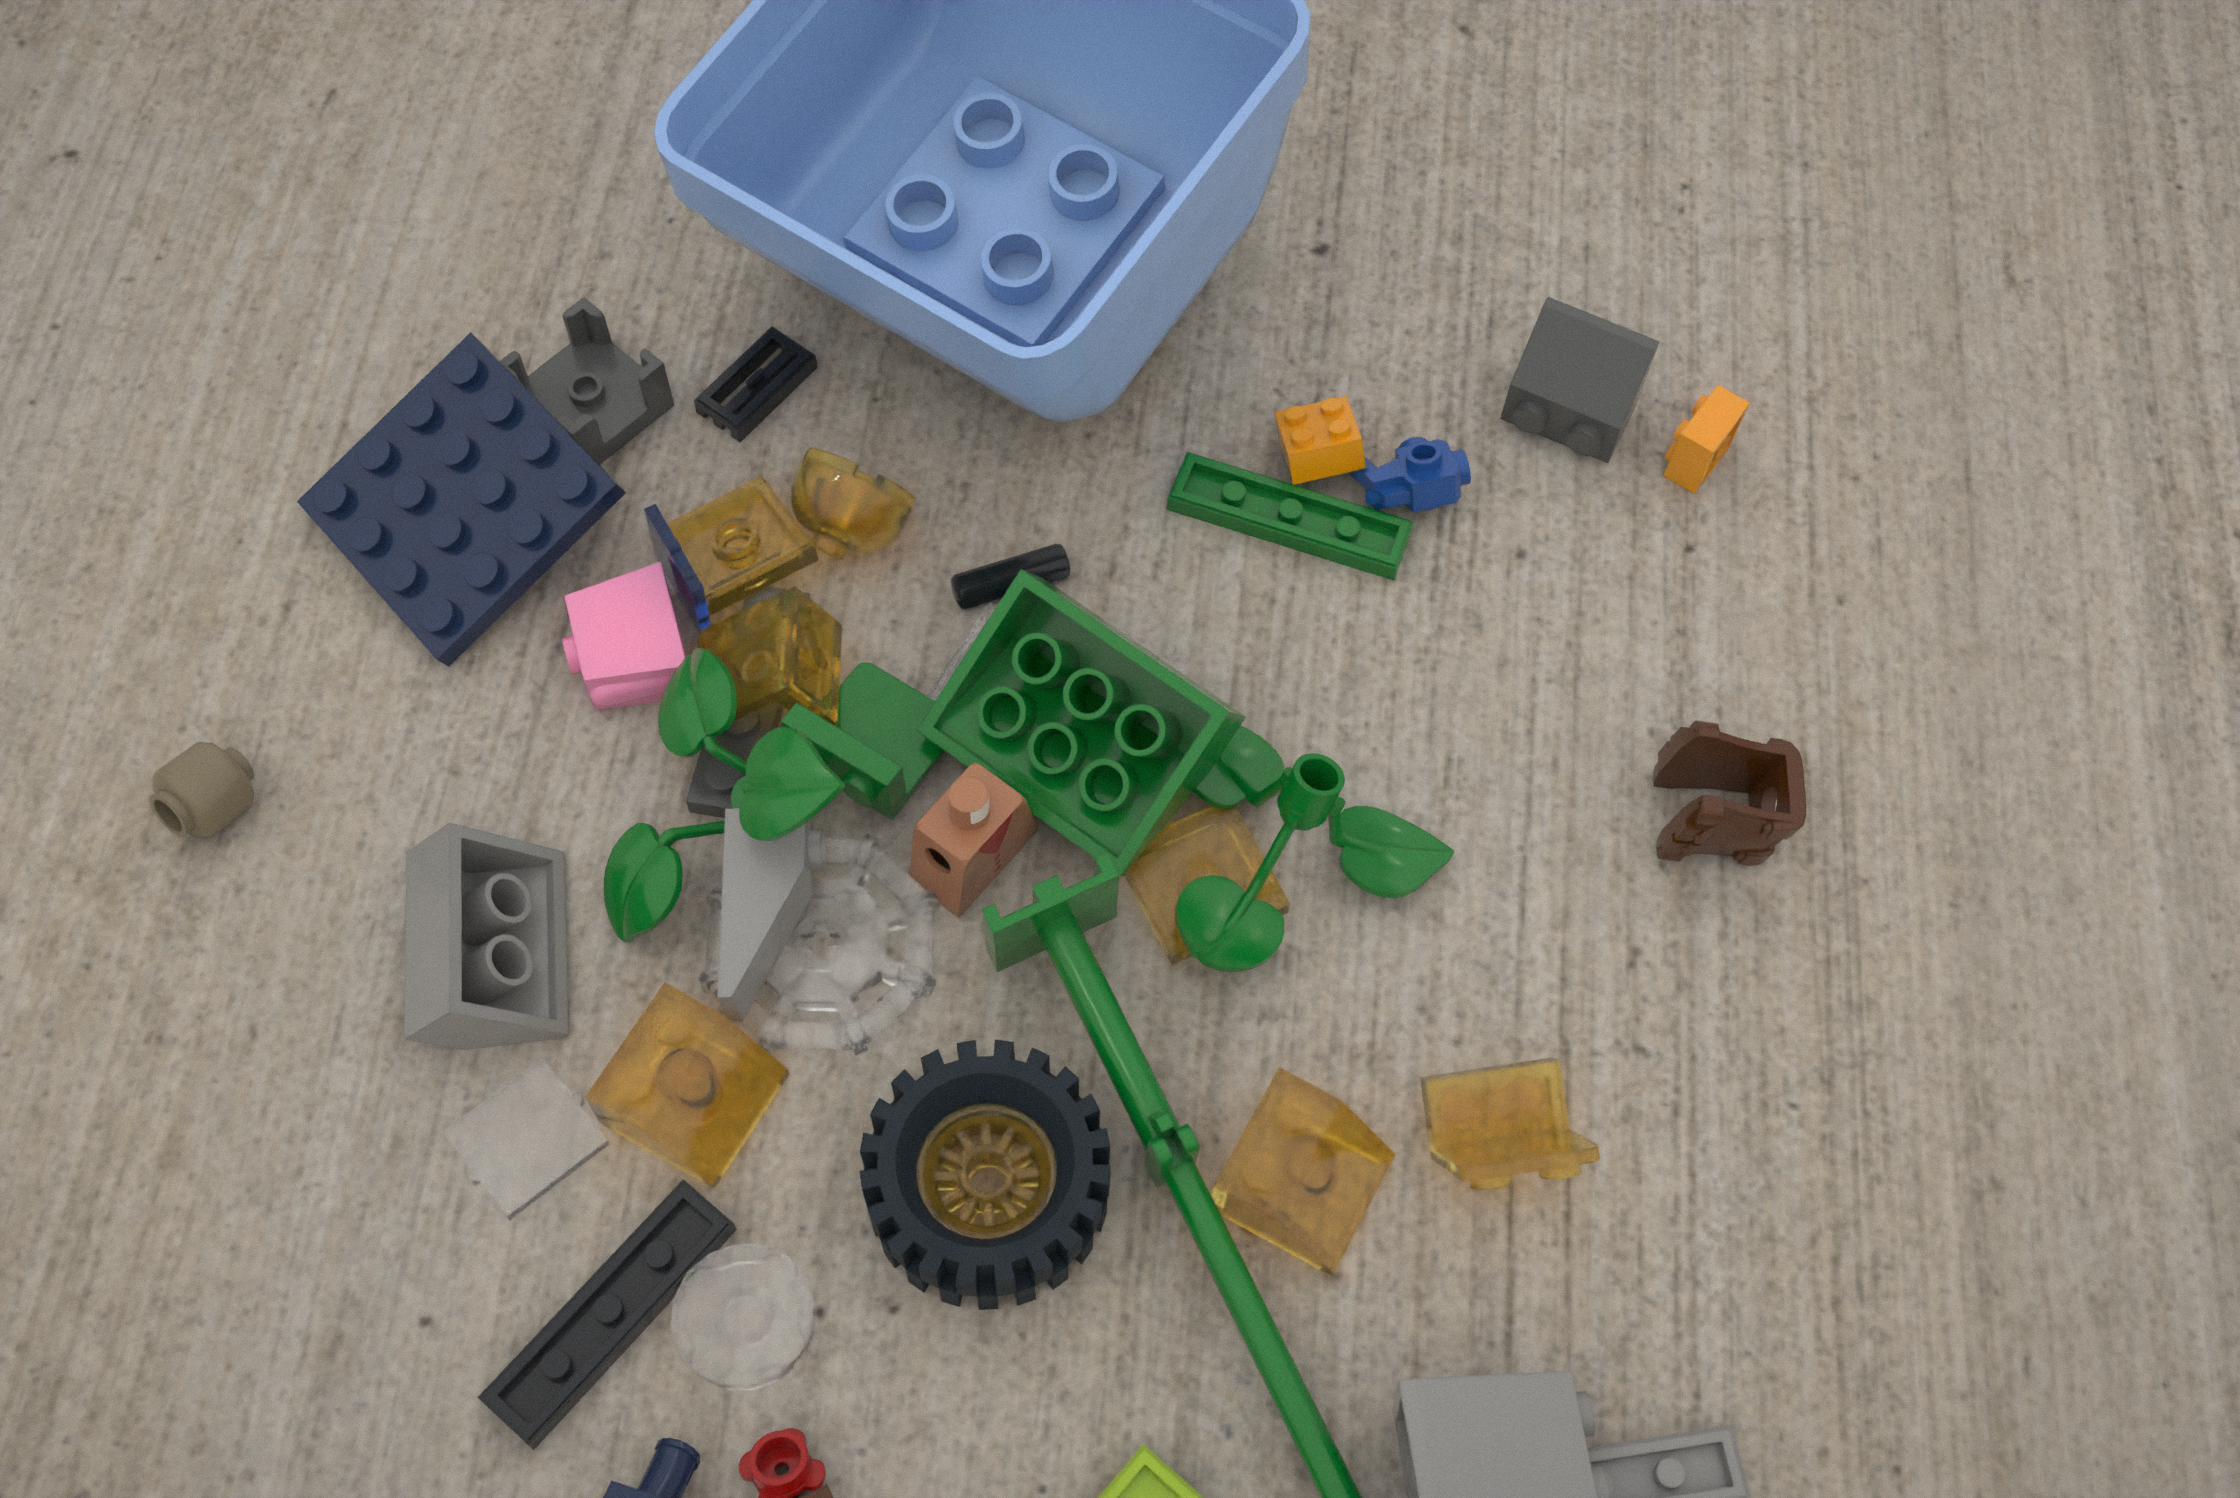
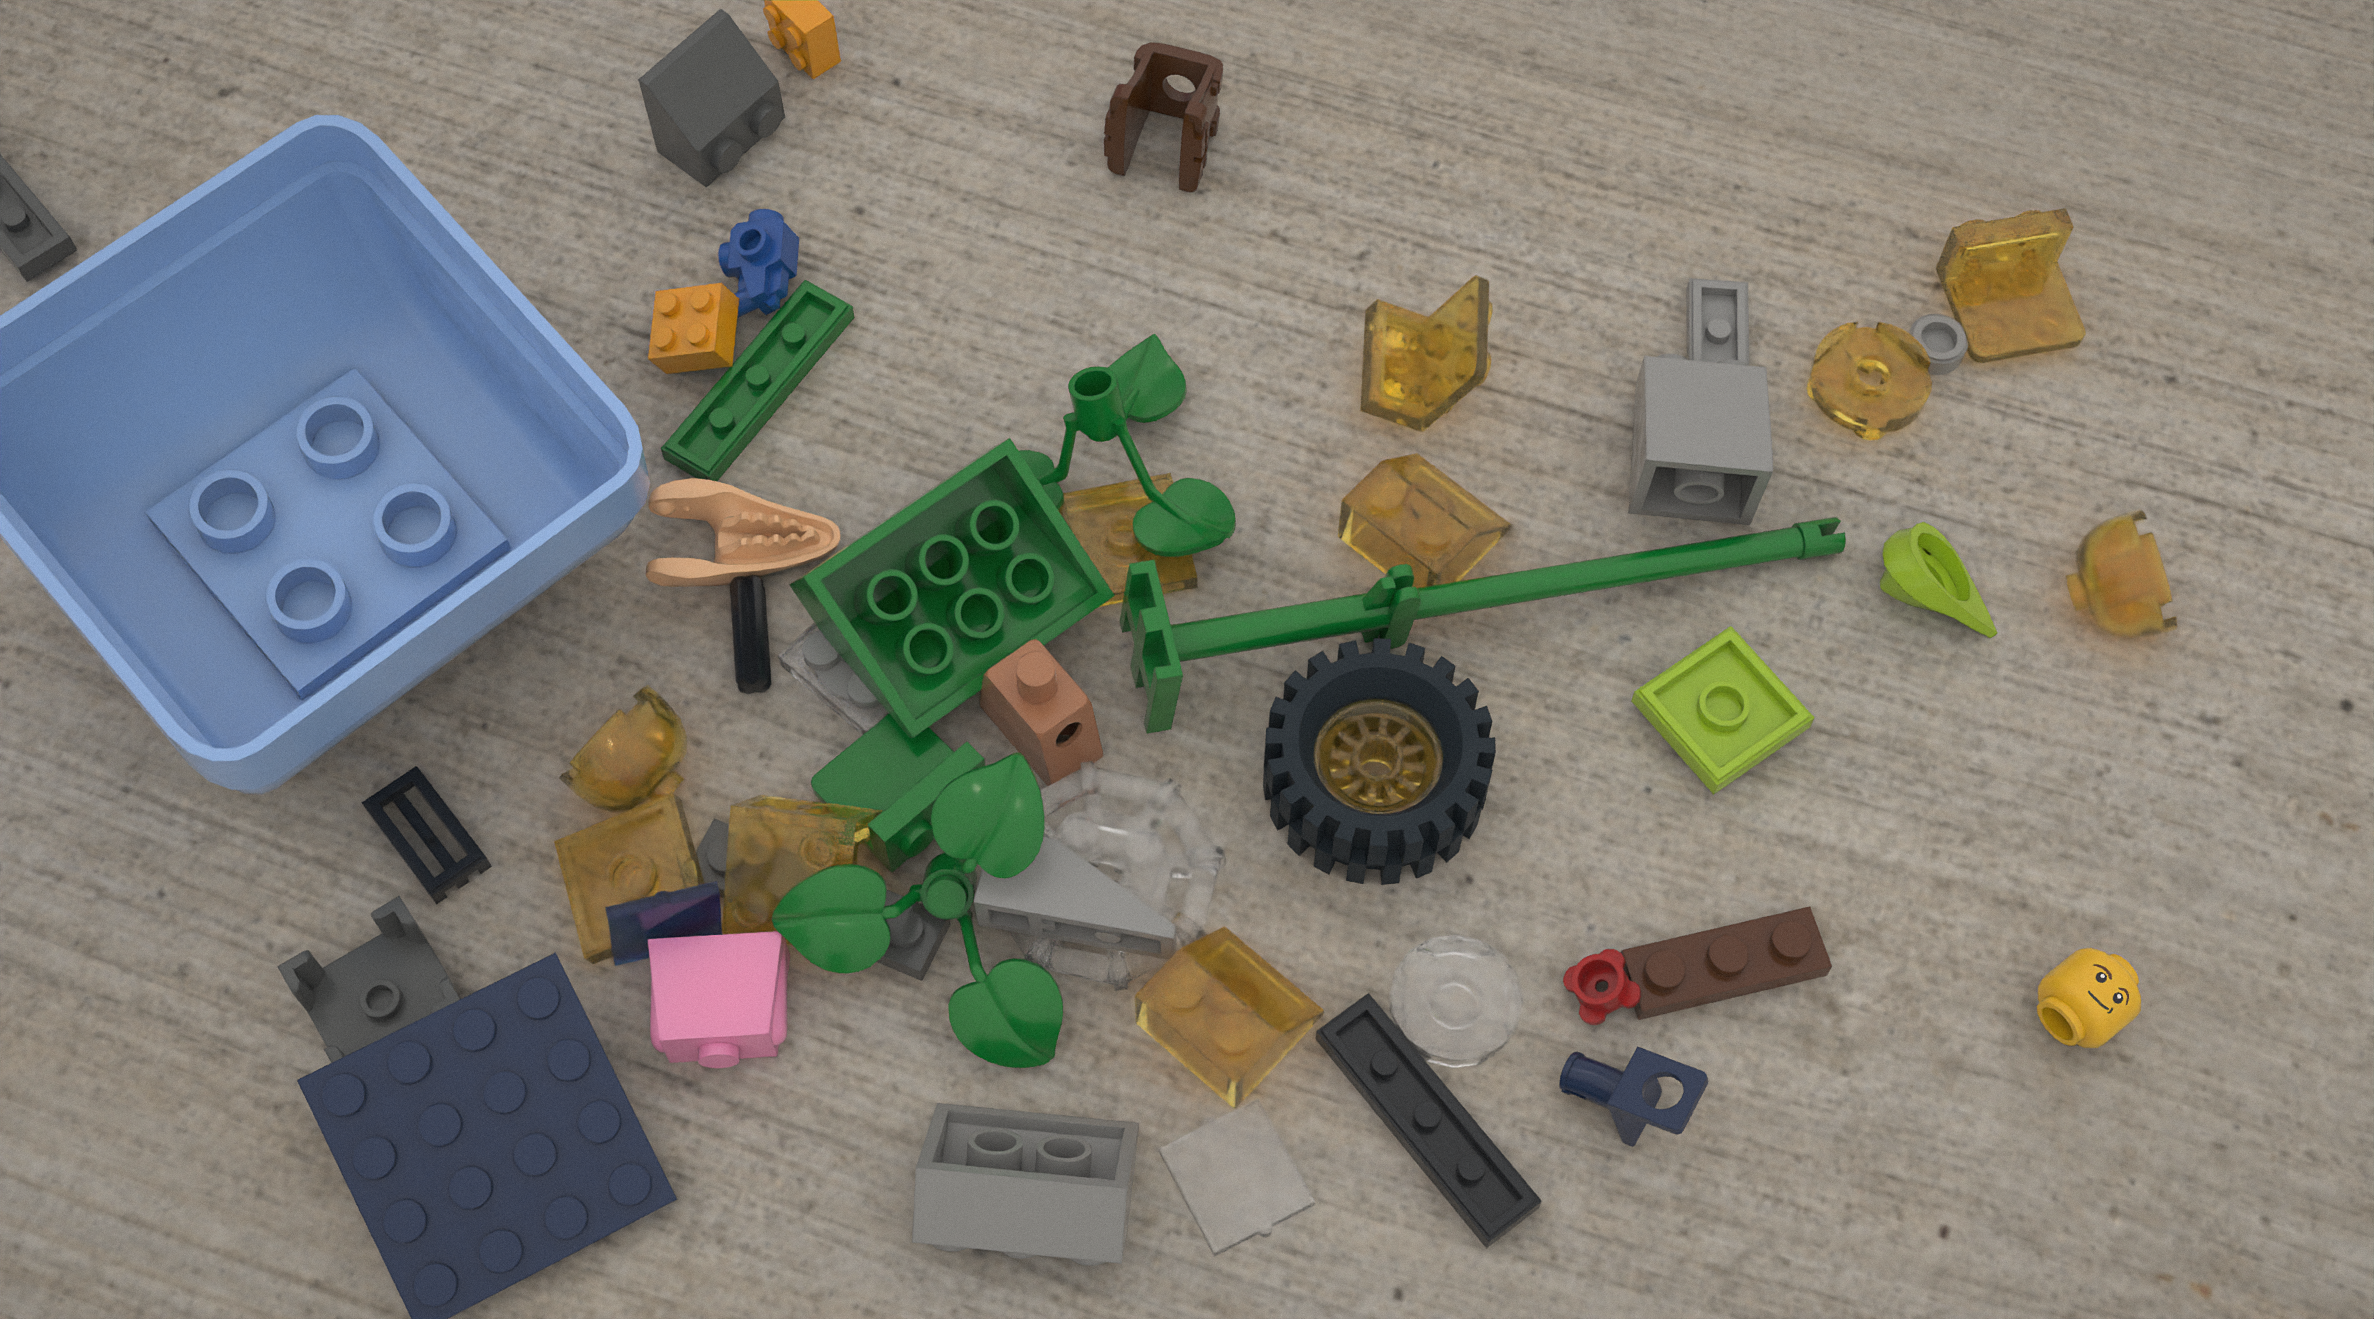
camera: 75 degrees left, 0 degrees up
(1114, 554) = (748, 530): none -> light nougat animal

